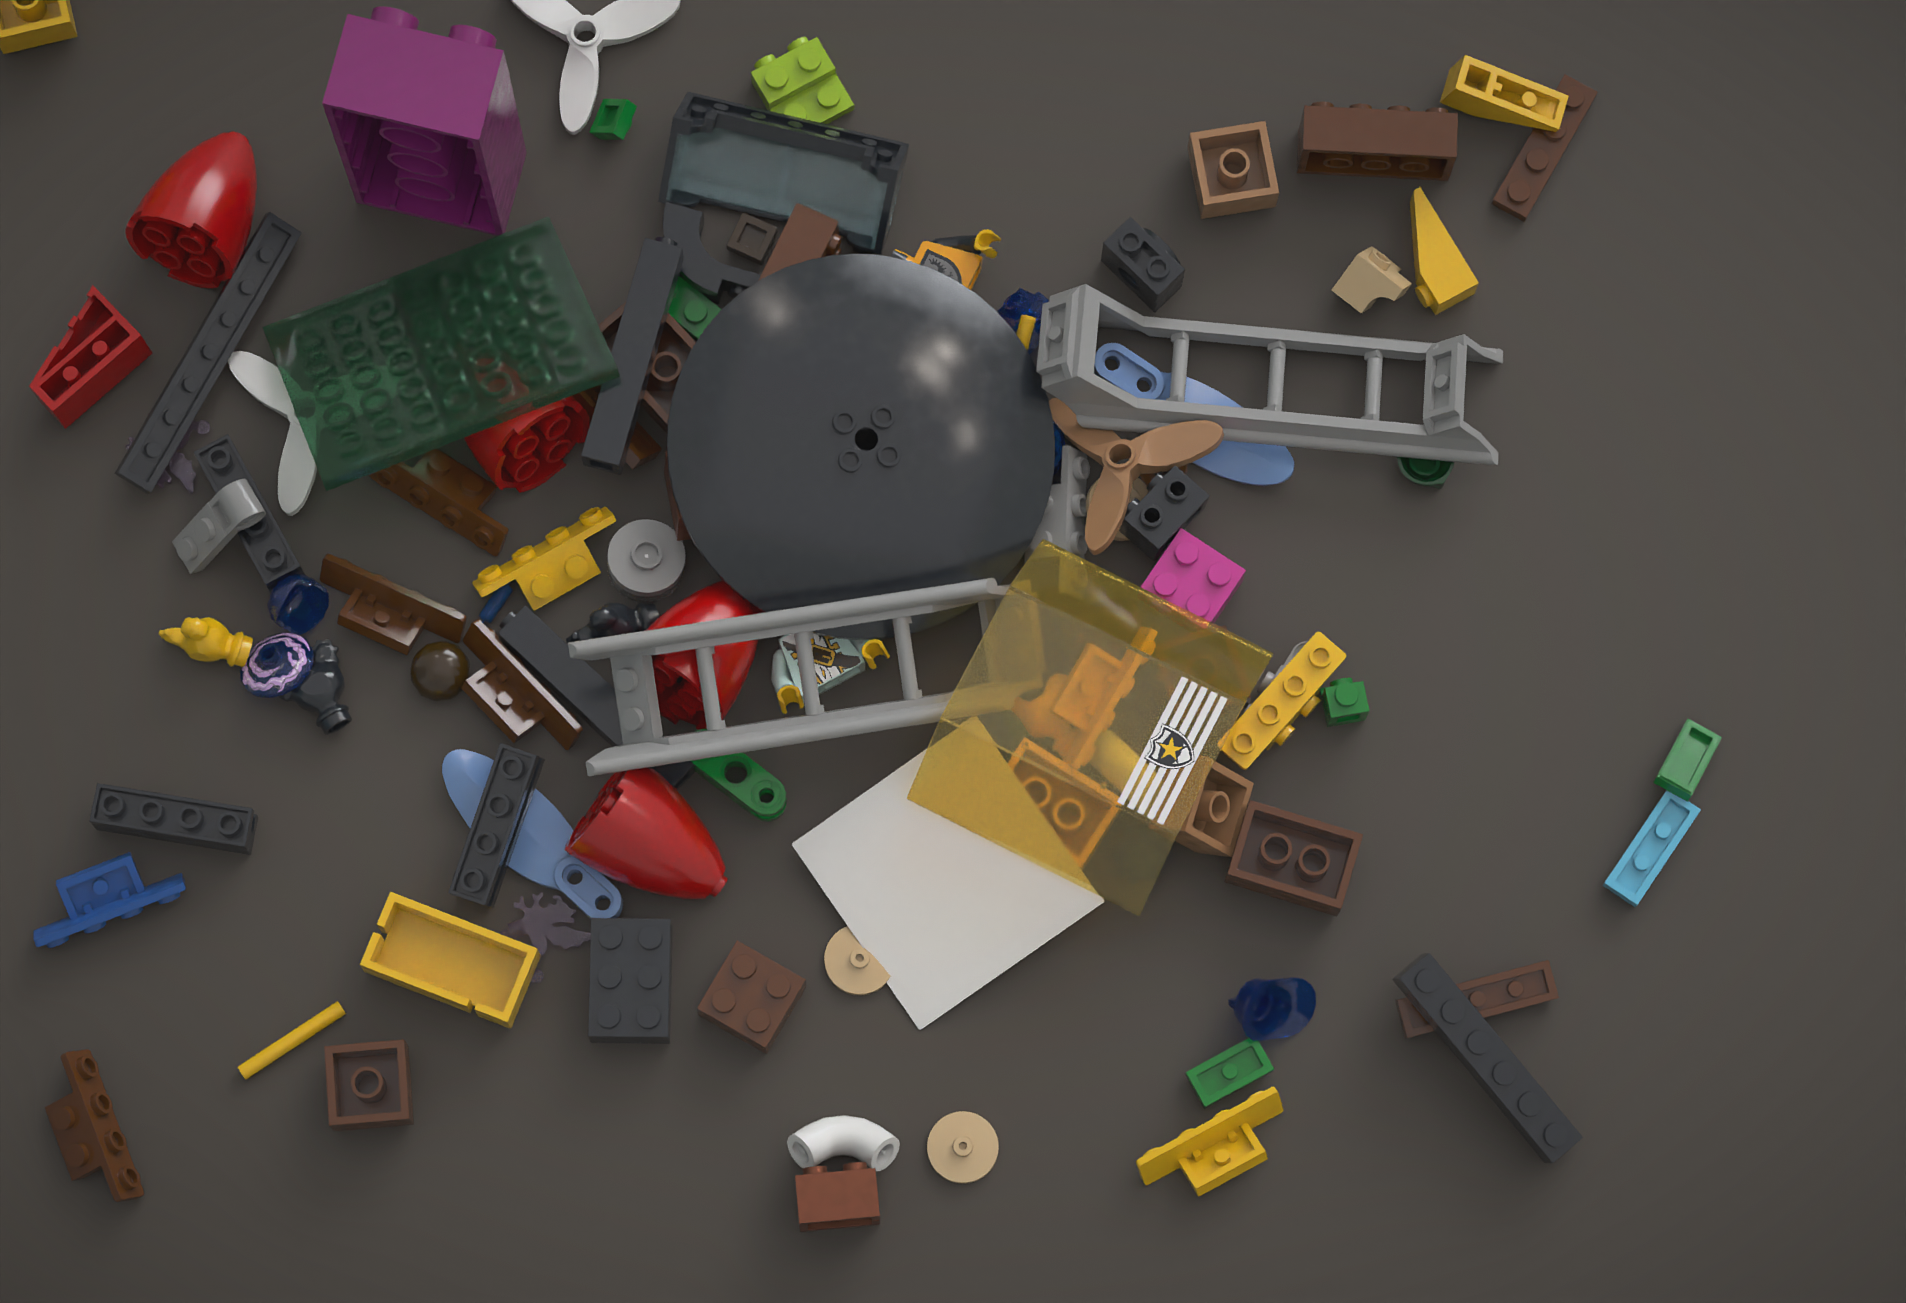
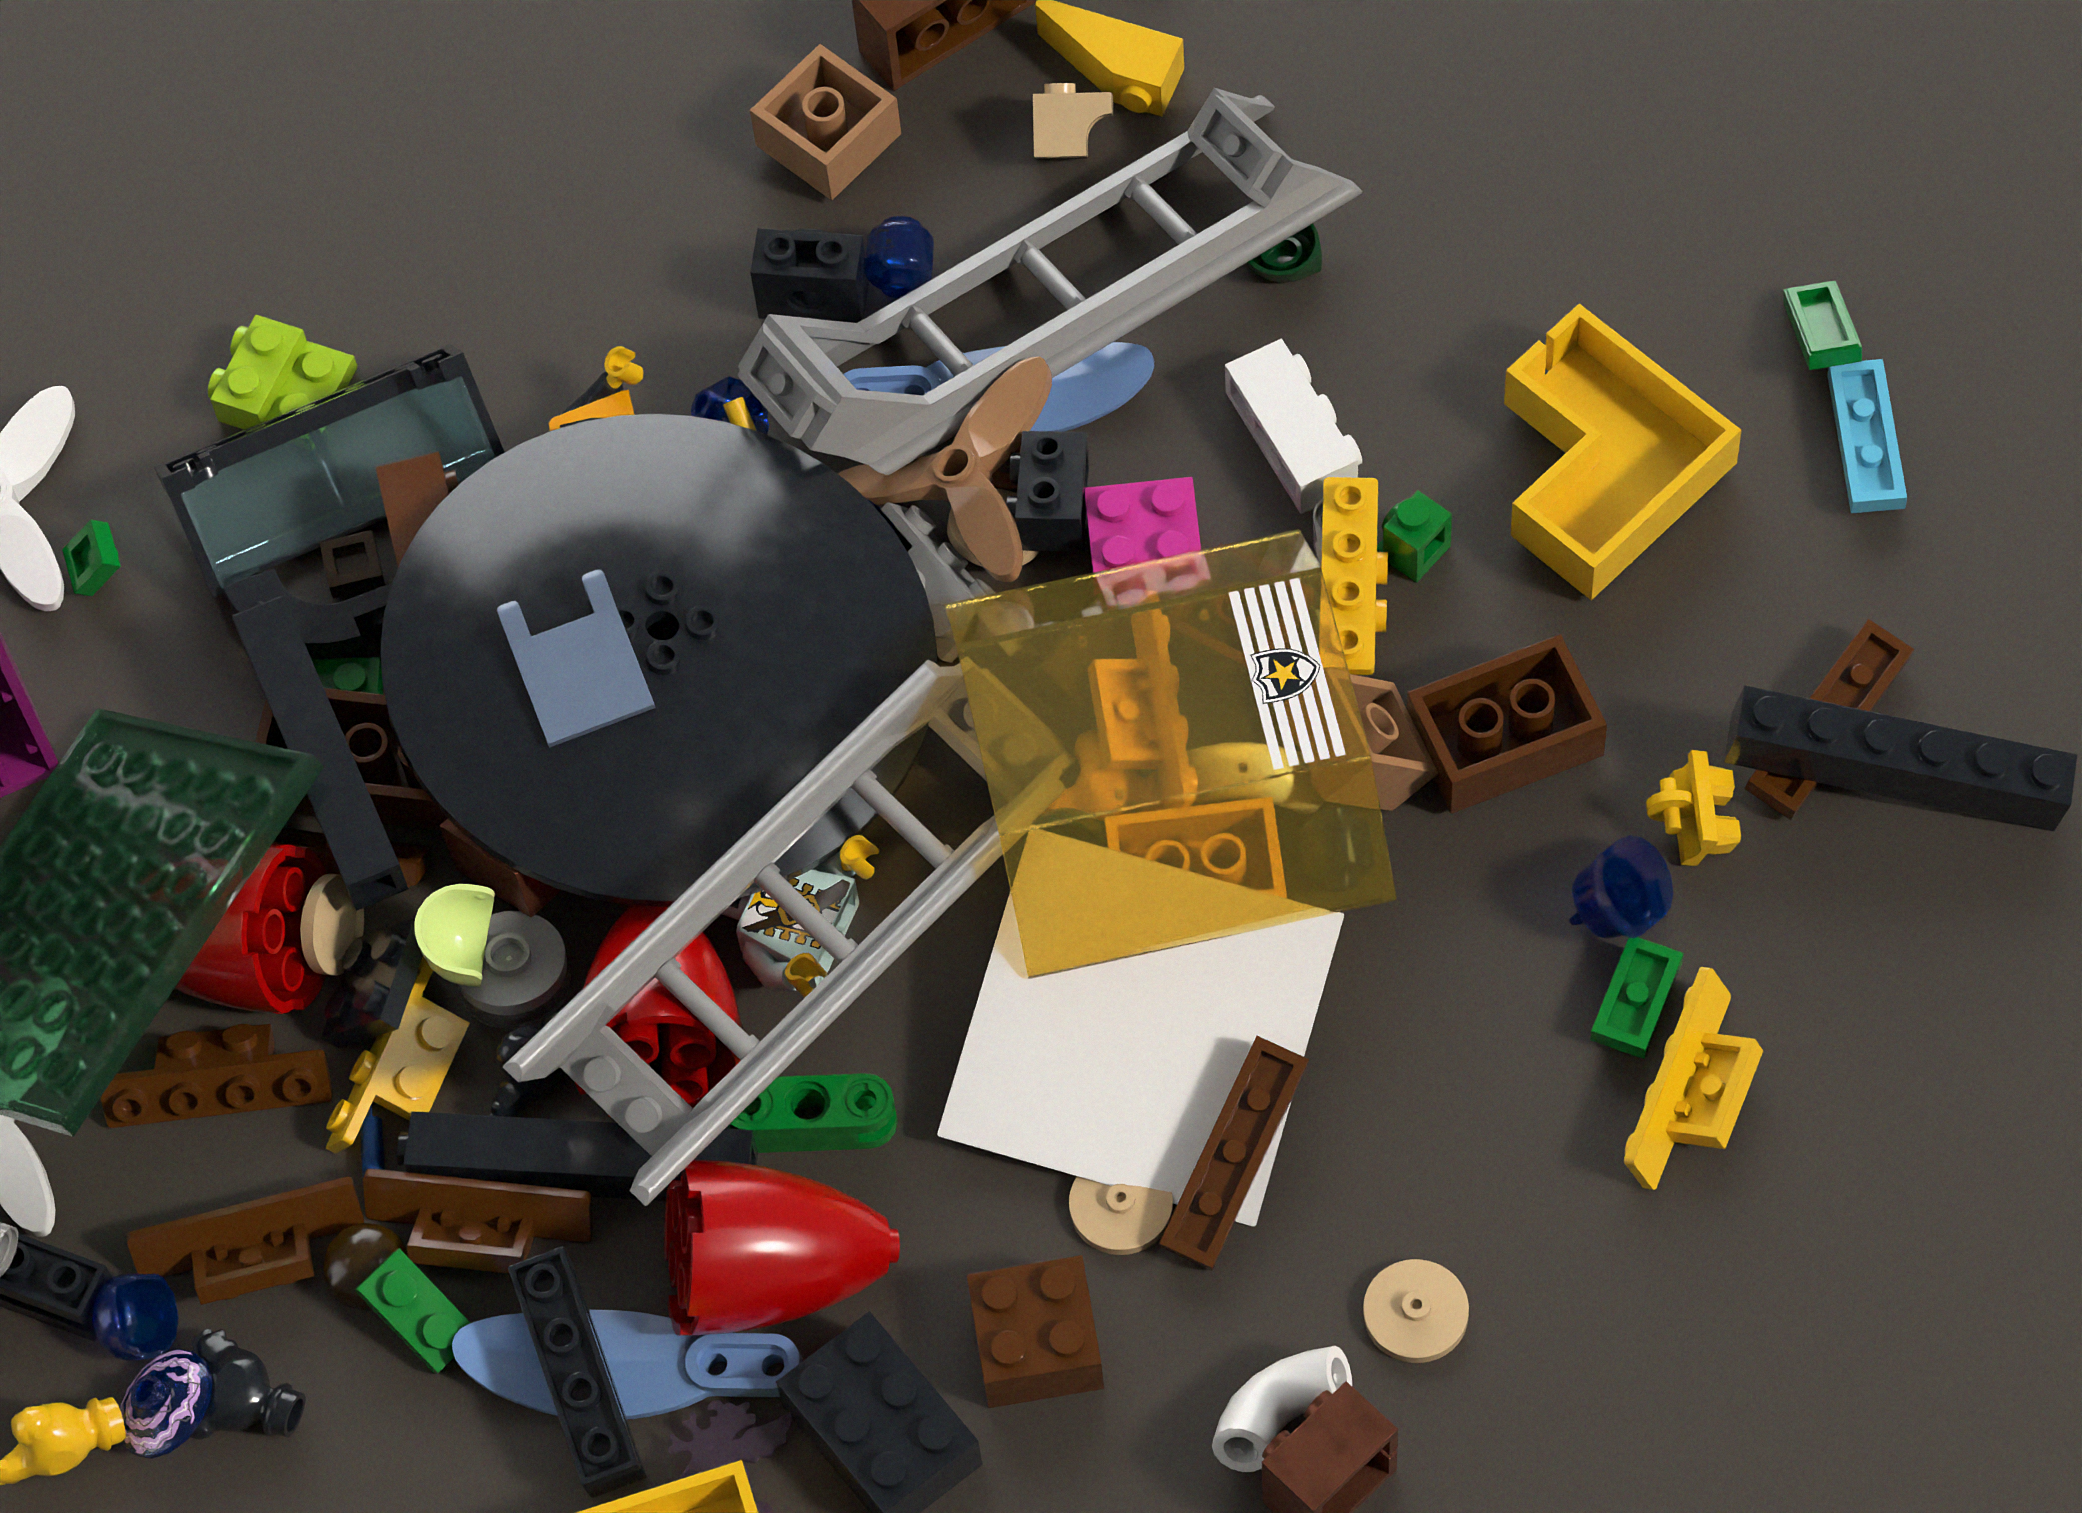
camera: 30 degrees left, 15 degrees down
(442, 717) = (413, 1309): none -> green plate
(563, 460) = (329, 925): none -> tan piece
(565, 512) = (373, 985): none -> black plate
(620, 525) = (454, 931): none -> yellowish green helmet
(796, 433) = (579, 671): none -> sand blue flag
(936, 984) = (1234, 1153): none -> reddish brown plate
(1204, 291) = (899, 255): none -> clear blue head
(1337, 577) = (1290, 422): none -> white brick
(1351, 988) = (1689, 811): none -> yellow hips
(1512, 754) = (1631, 443): none -> yellow piece

